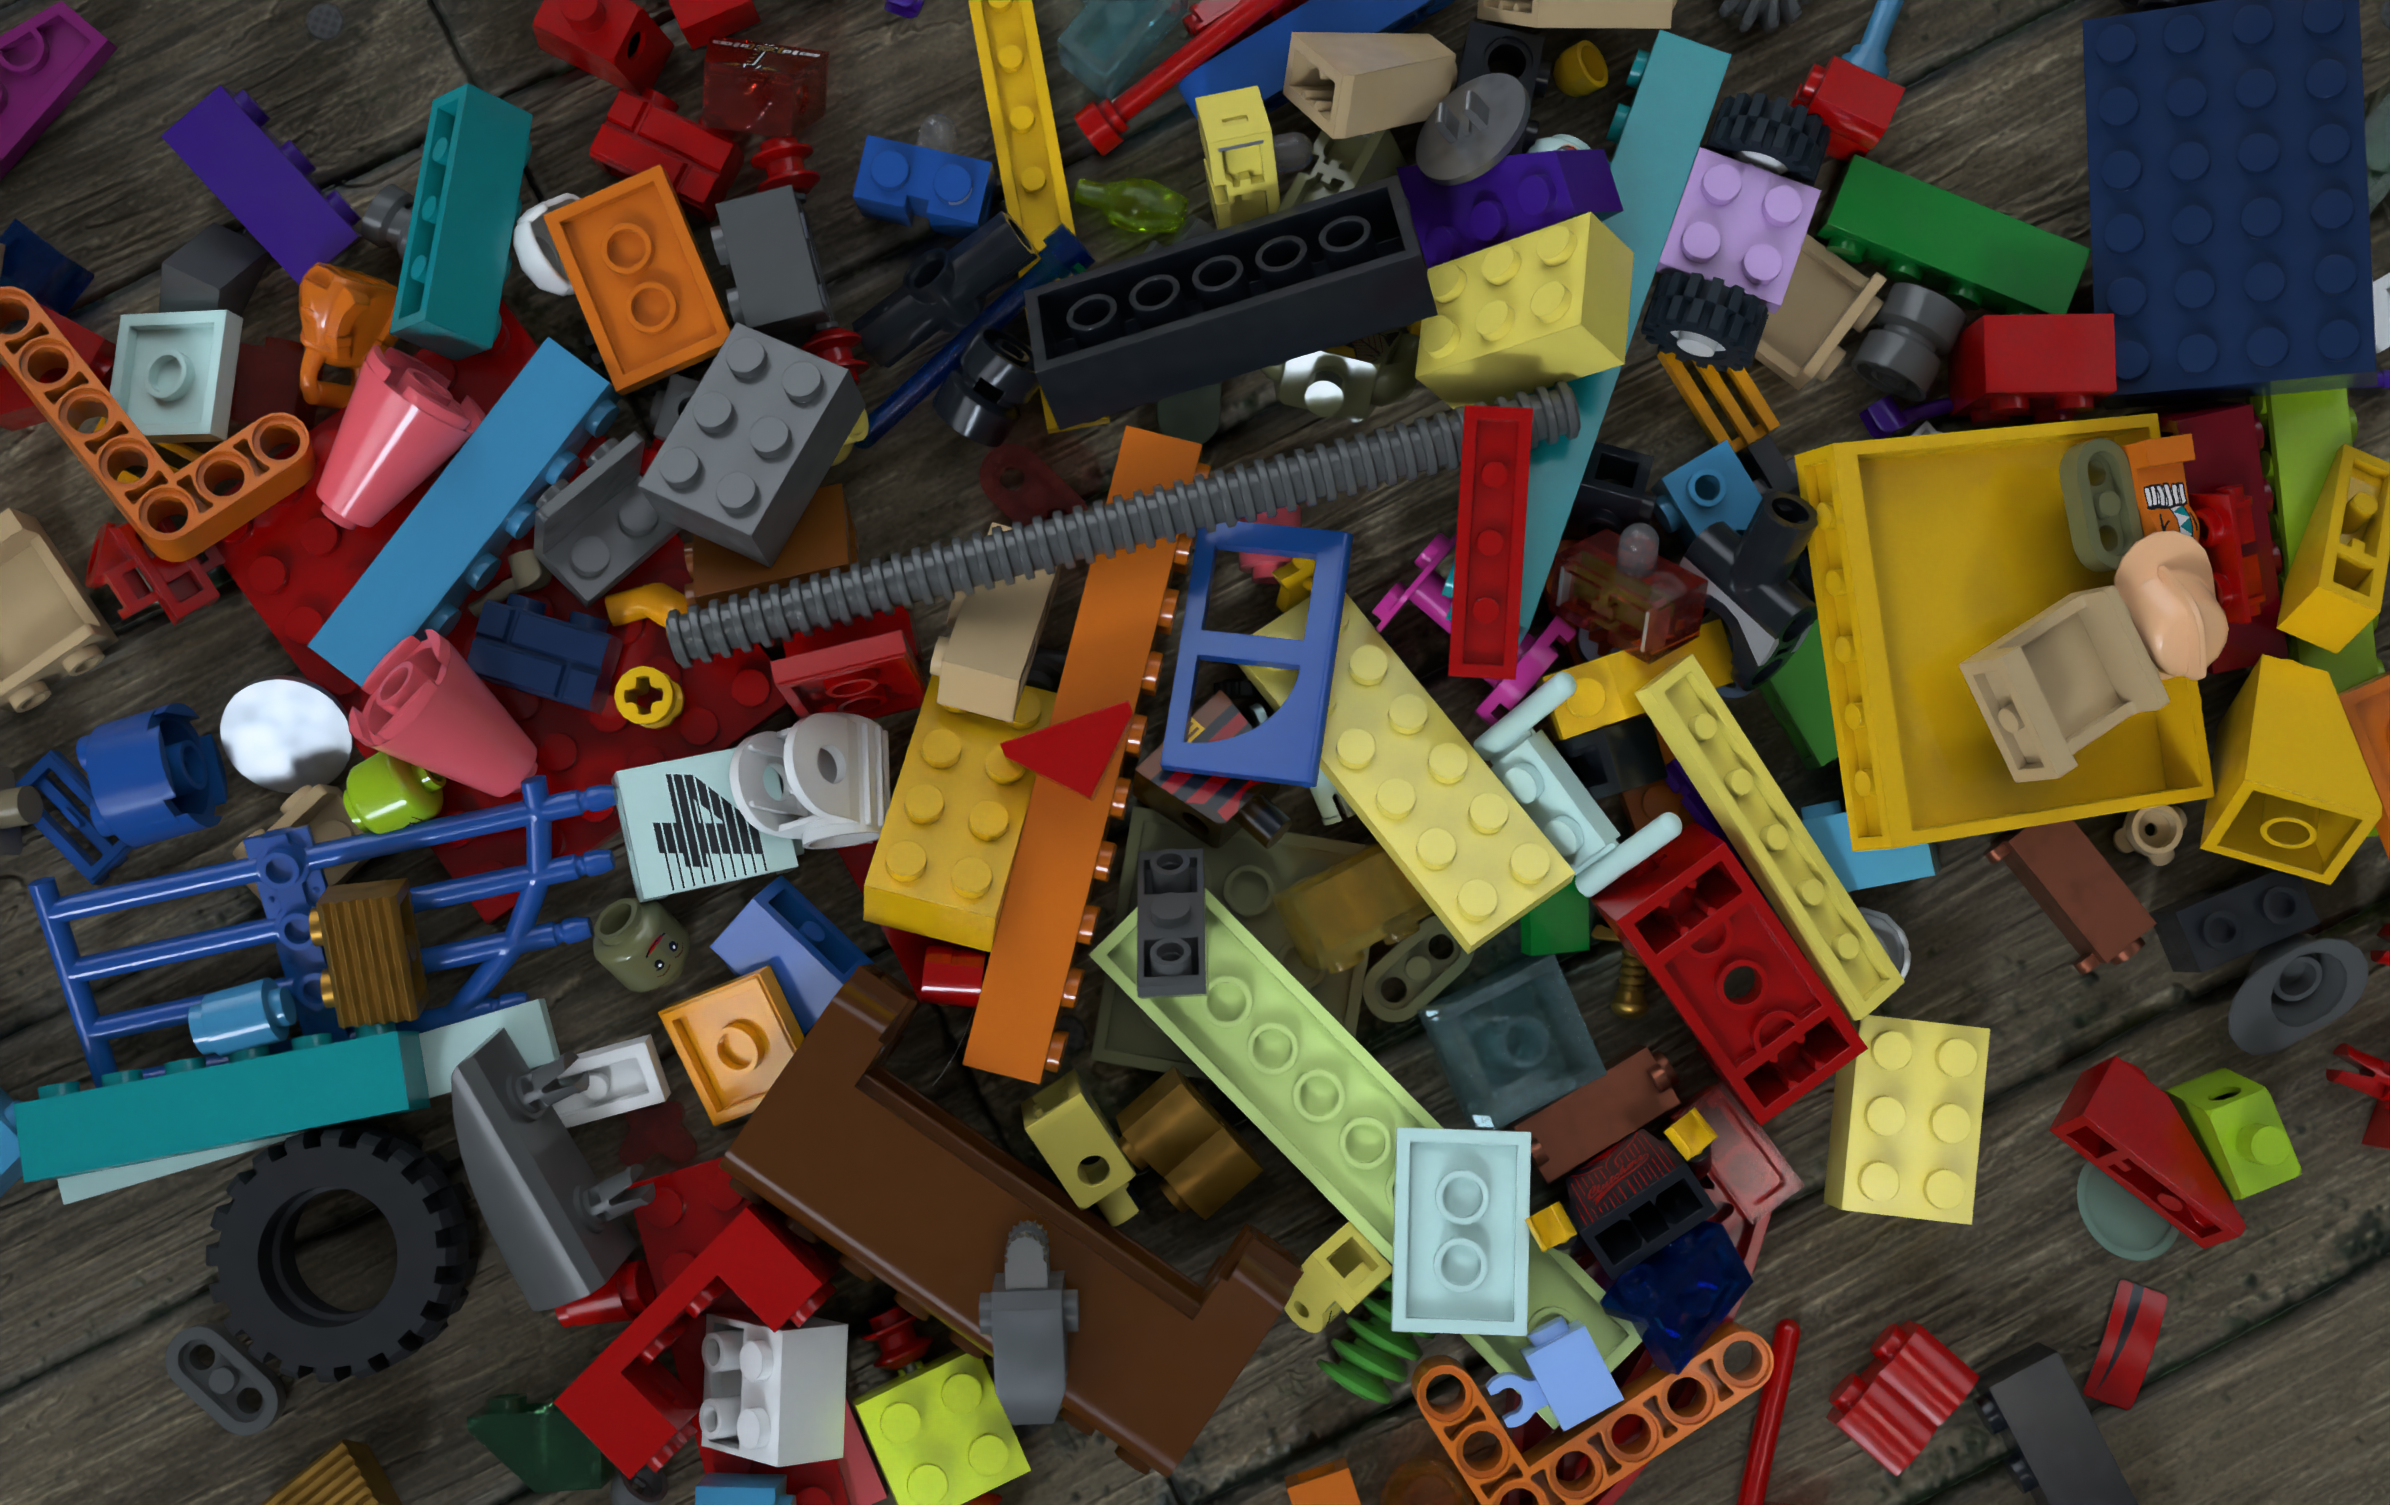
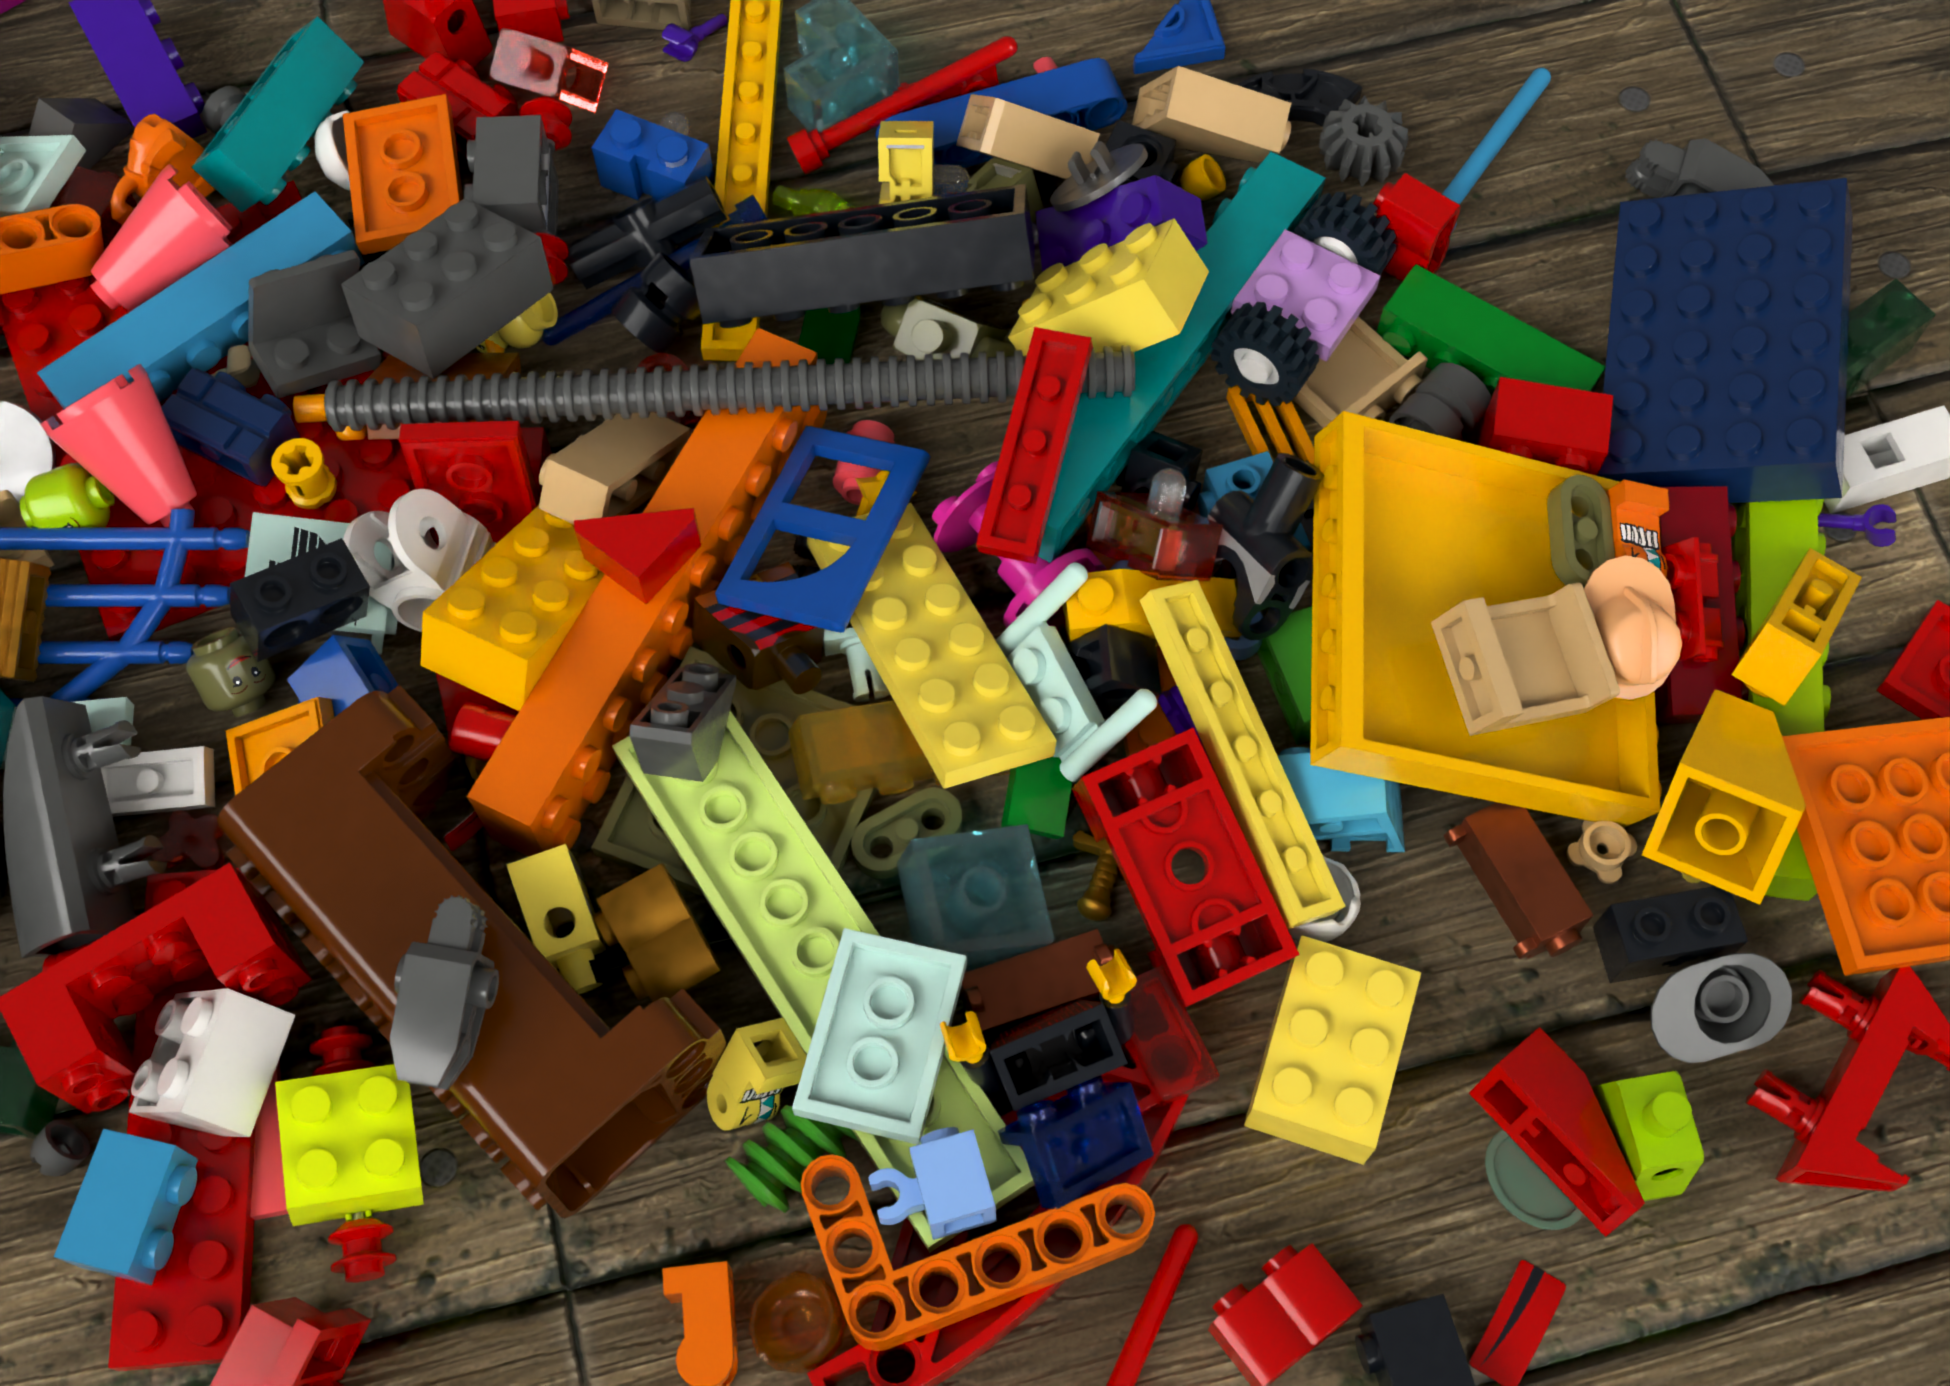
camera: 15 degrees right, 20 degrees down
(709, 874) = (299, 599): none -> black brick

